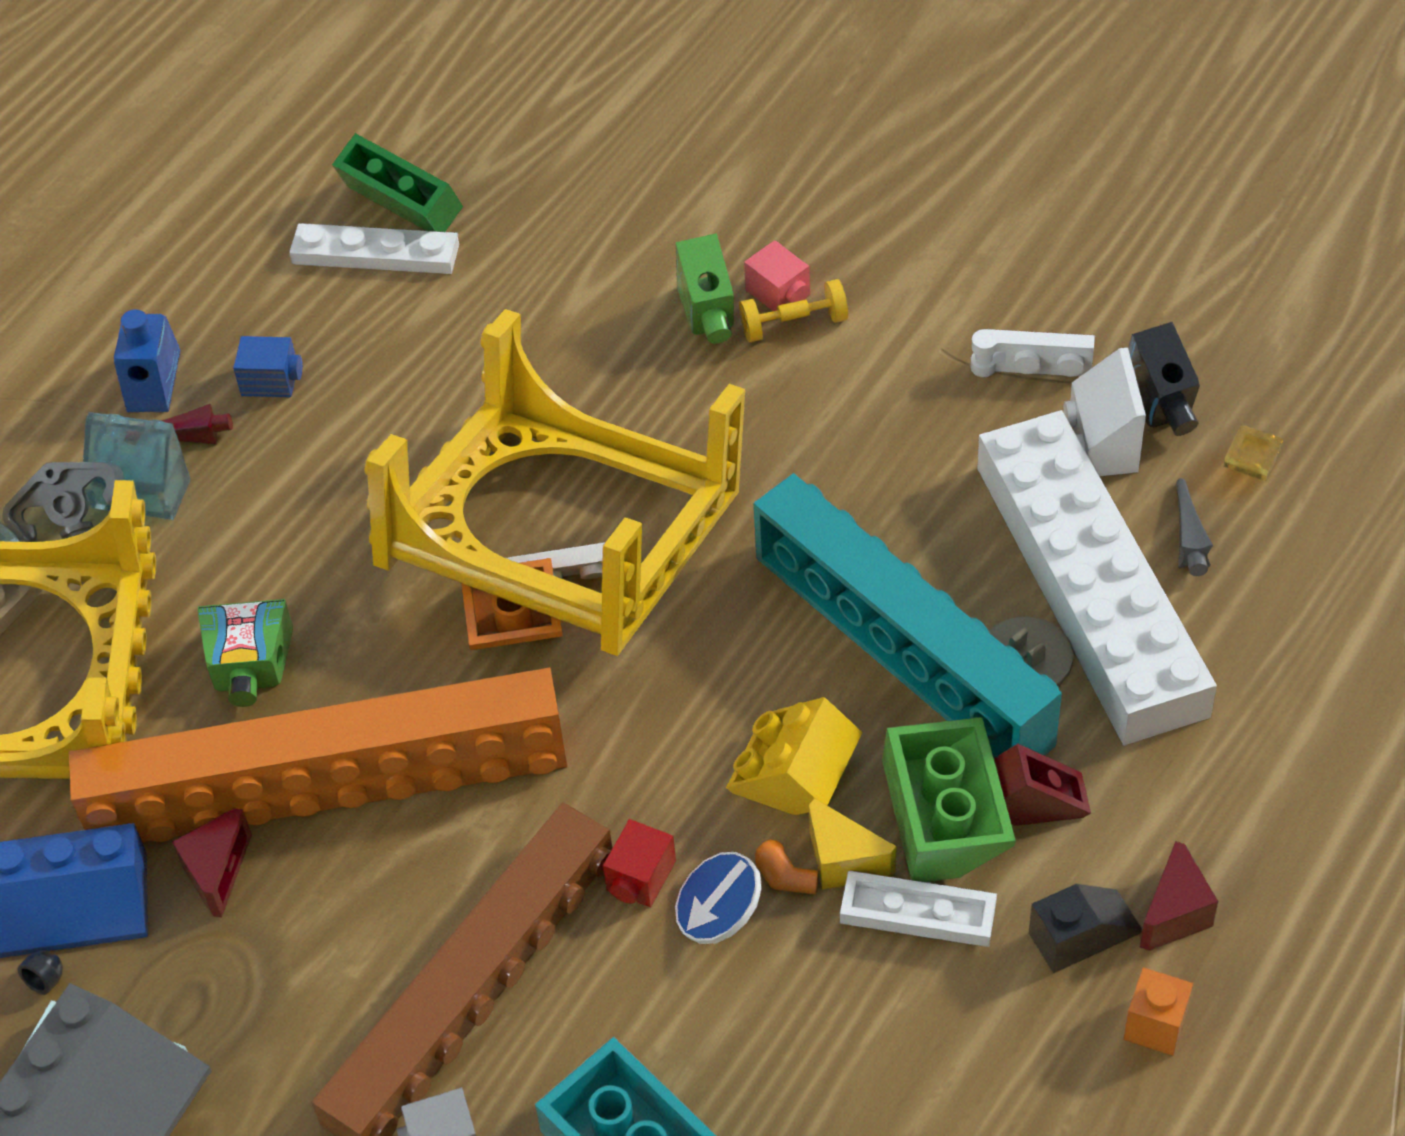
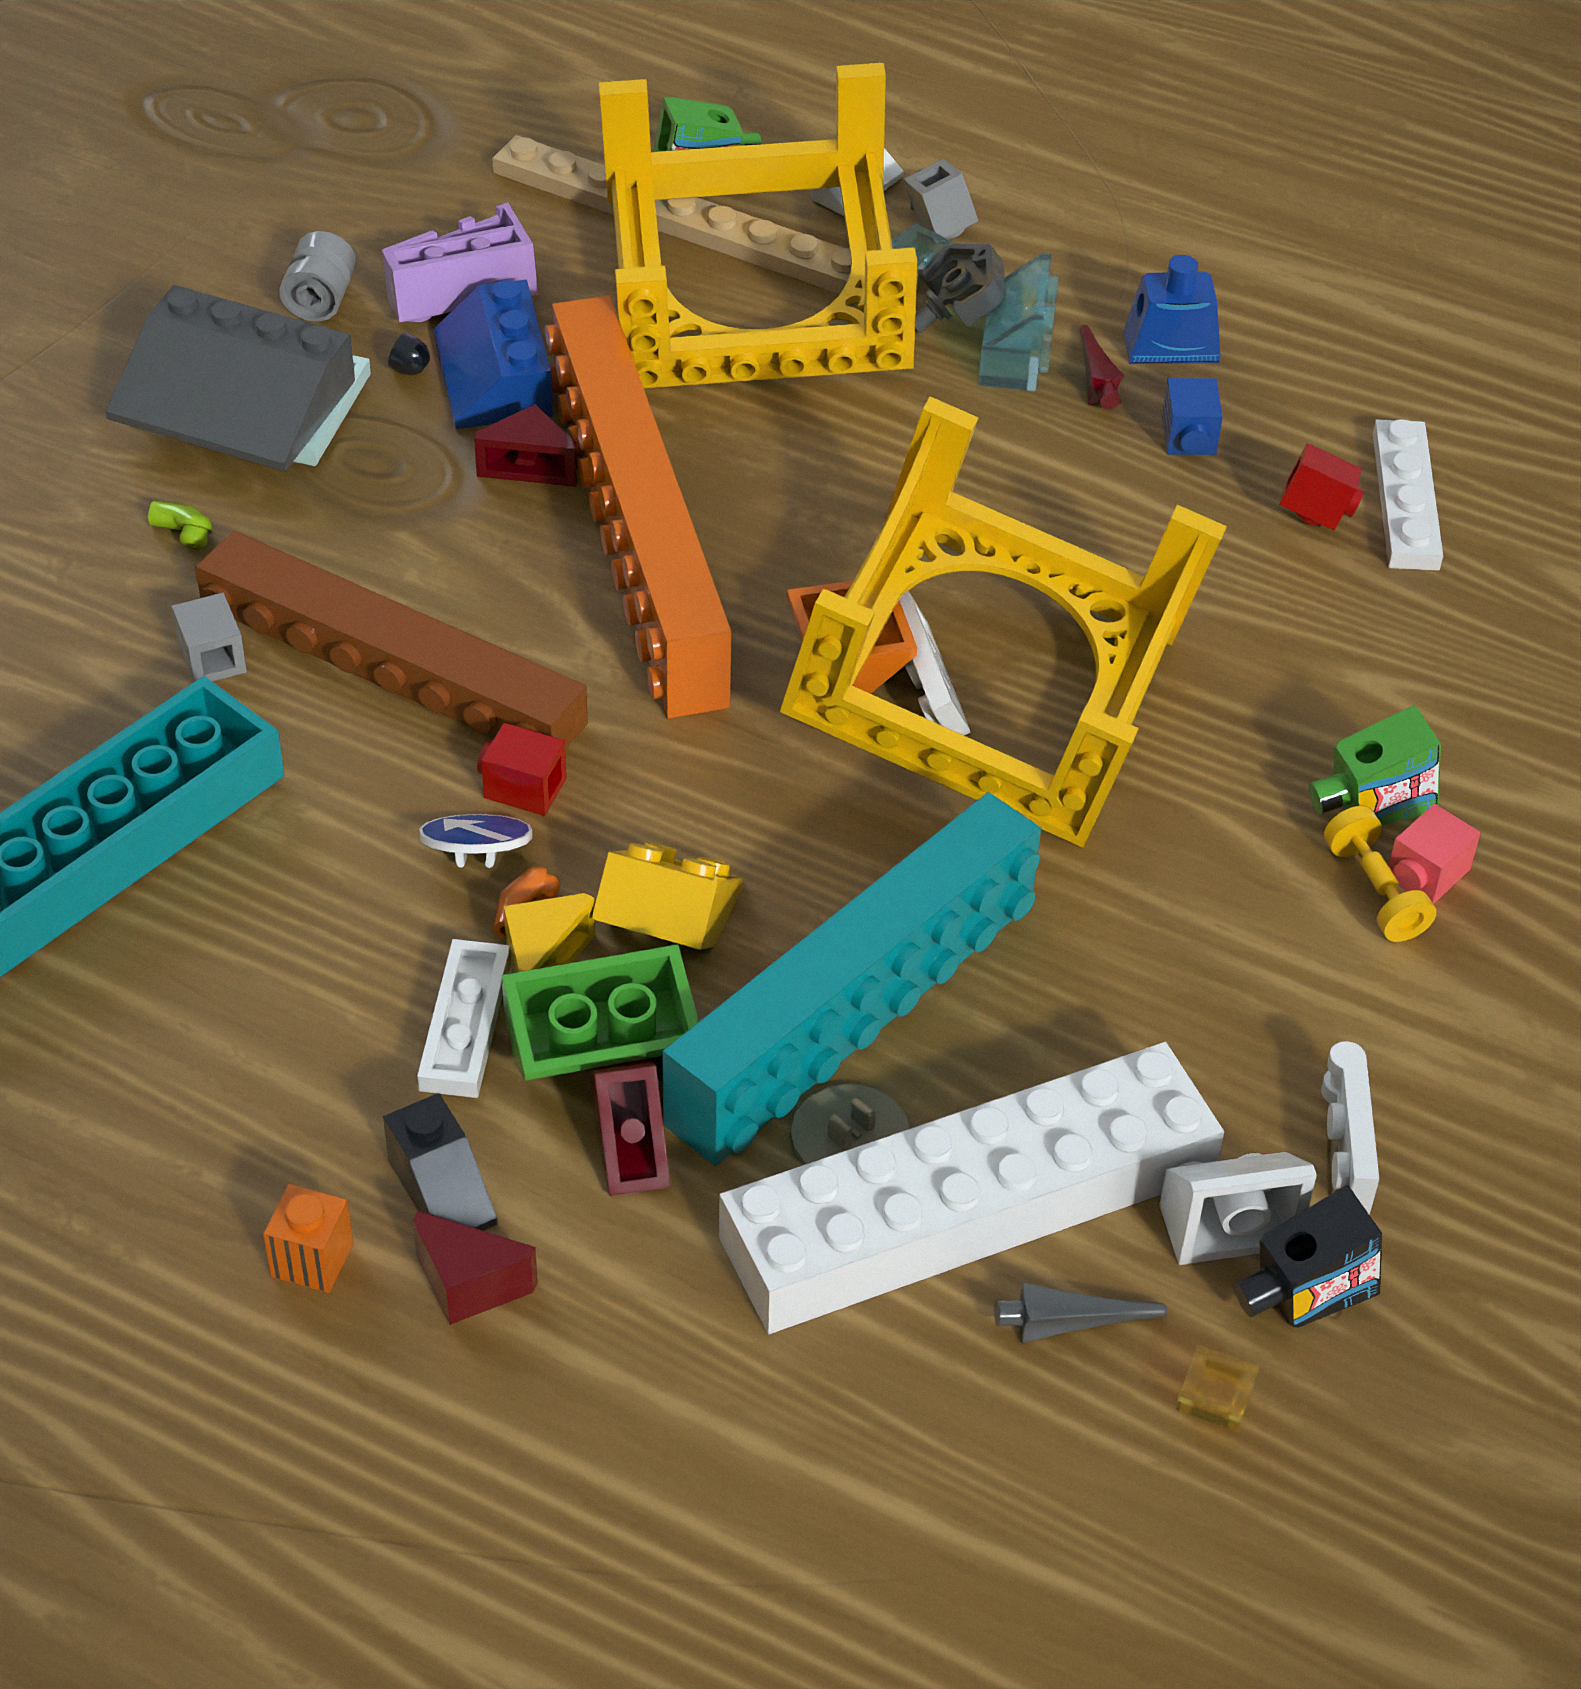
camera: 80 degrees right, 5 degrees down
(245, 646) = (794, 442): torso -> none
(378, 289) = (1322, 488): none -> red brick
(397, 185) = (1493, 486): green brick -> none

